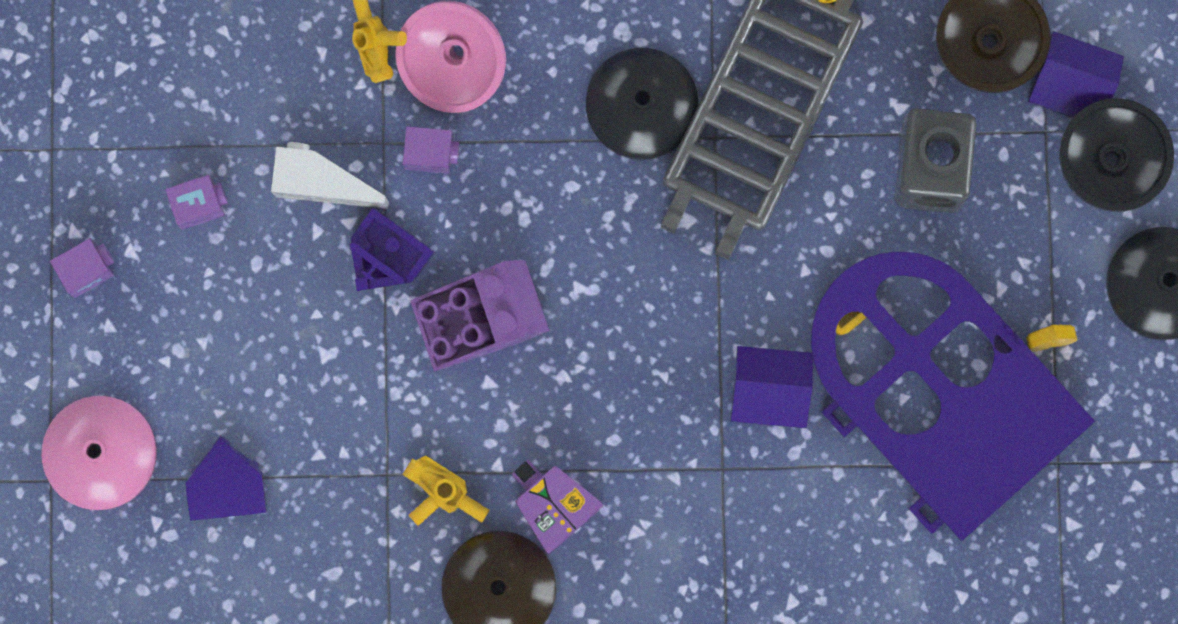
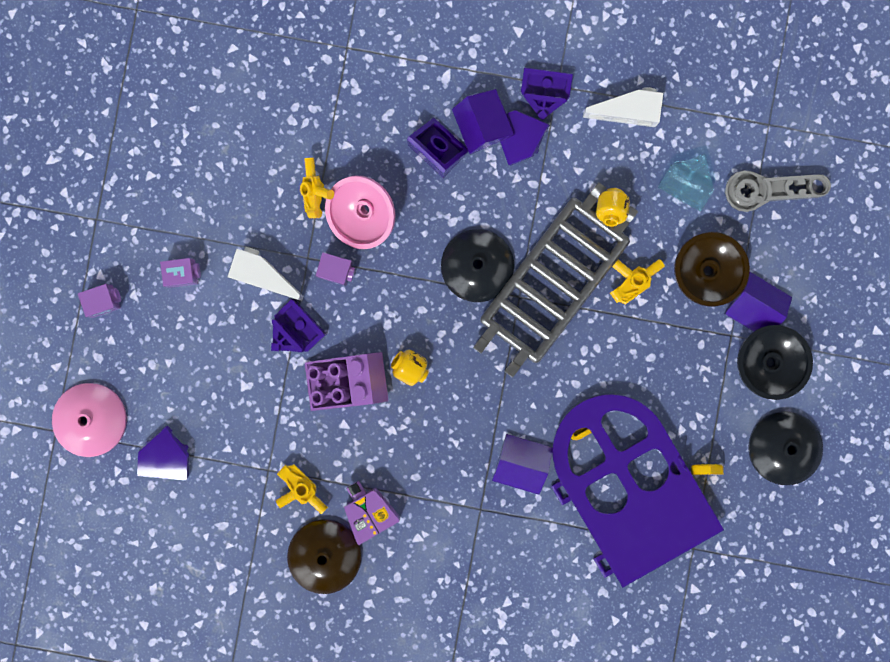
camera: 15 degrees right, 5 degrees up
(571, 274) = (409, 367): none -> yellow head
(884, 80) = (635, 282): none -> yellow piece
(921, 182) = (643, 354): dark grey piece -> none

